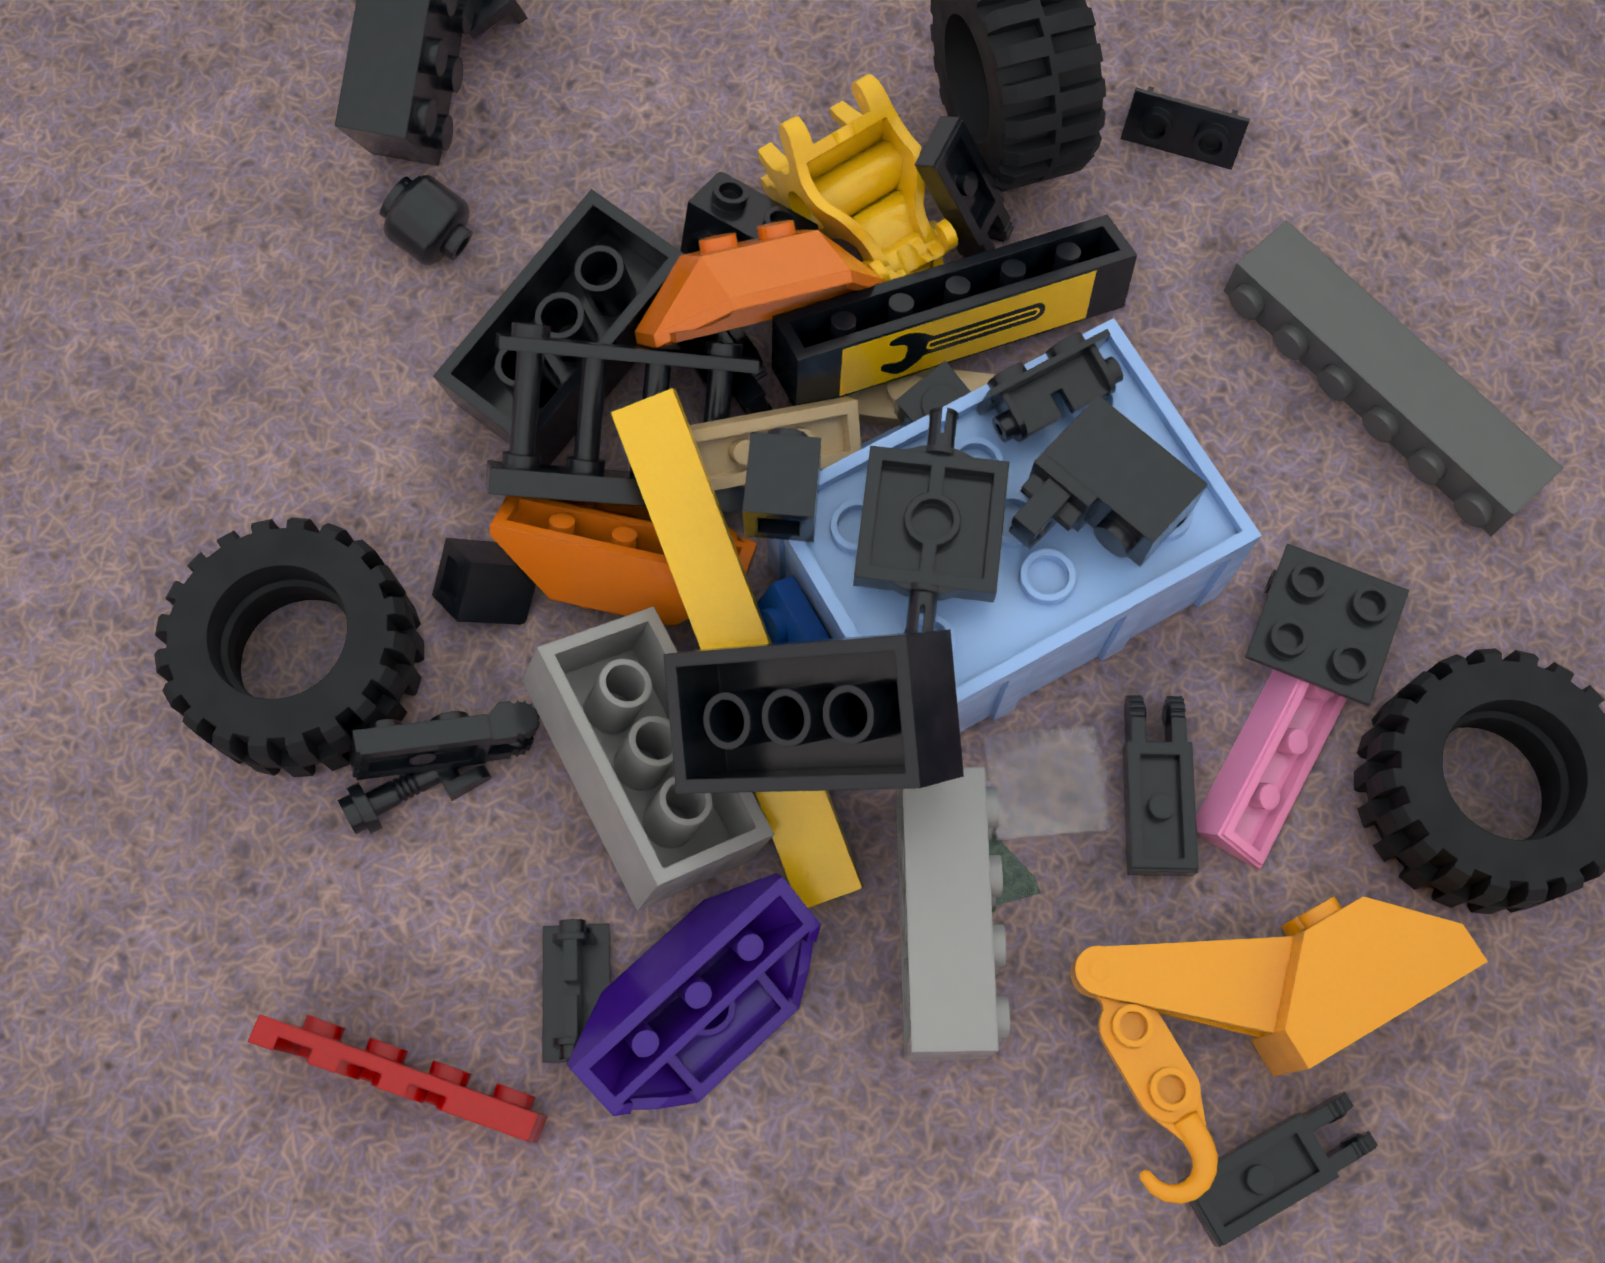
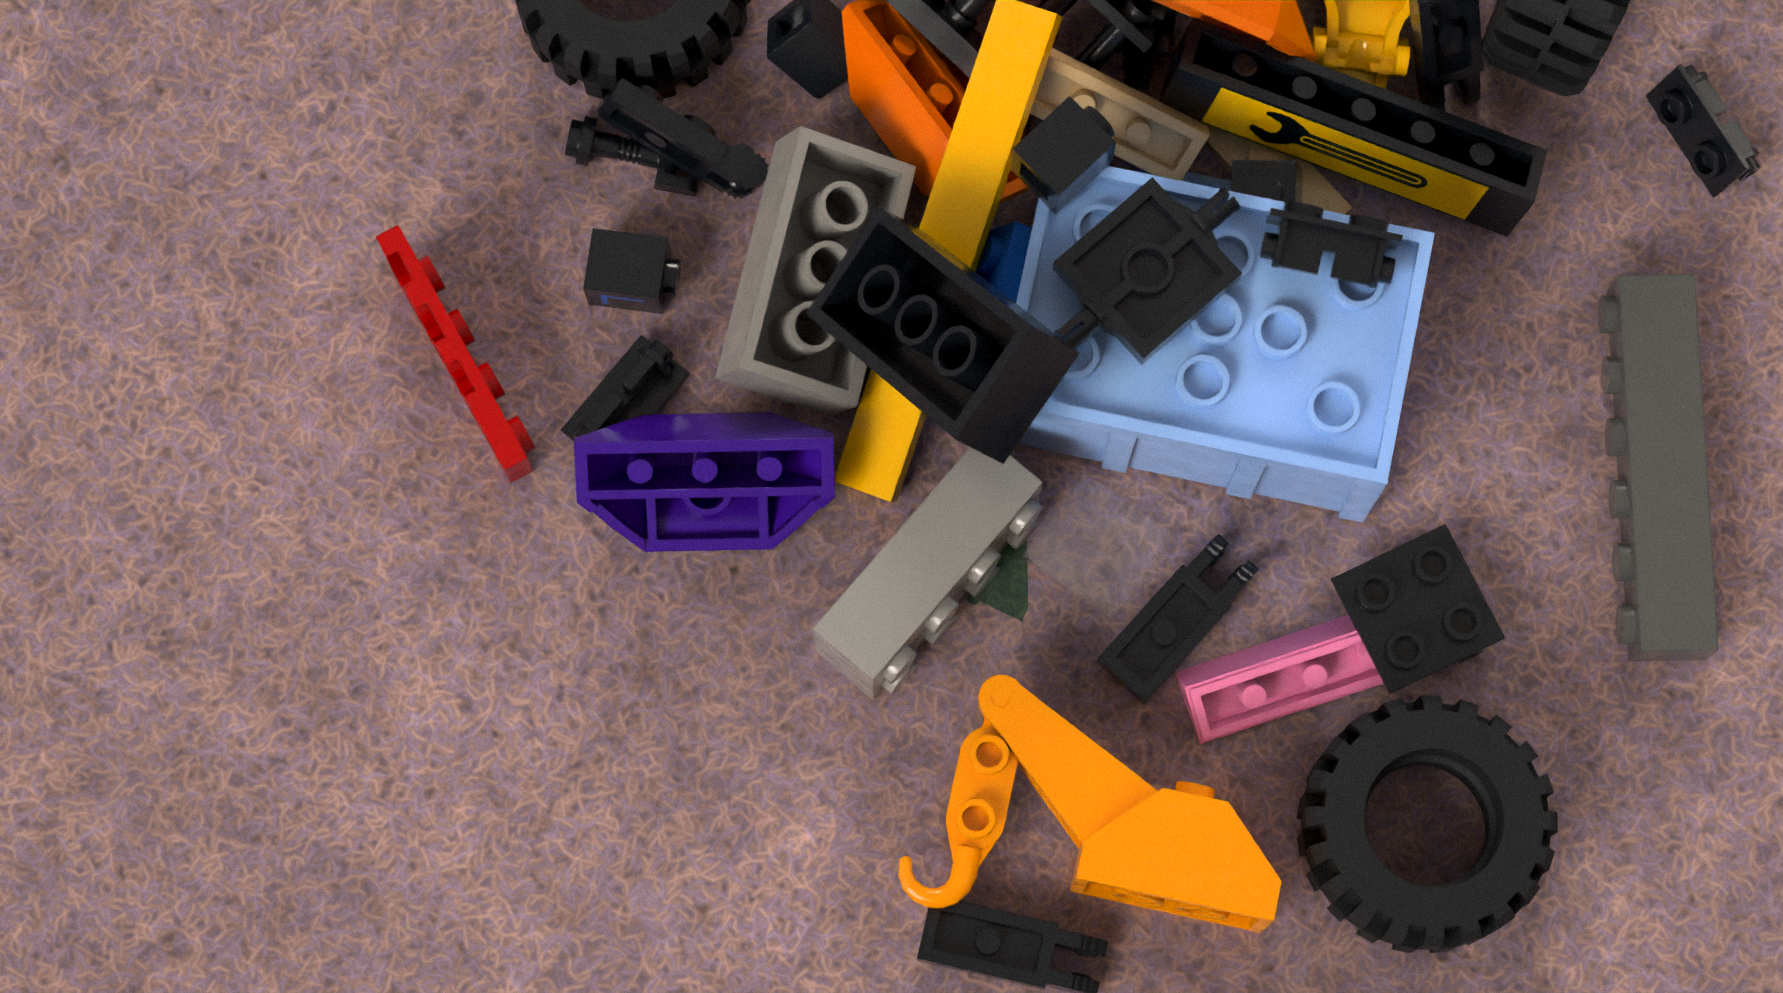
camera: 40 degrees right, 5 degrees up
(490, 882) = (630, 271): none -> black brick
(1113, 480) = (1304, 342): black hinge -> none

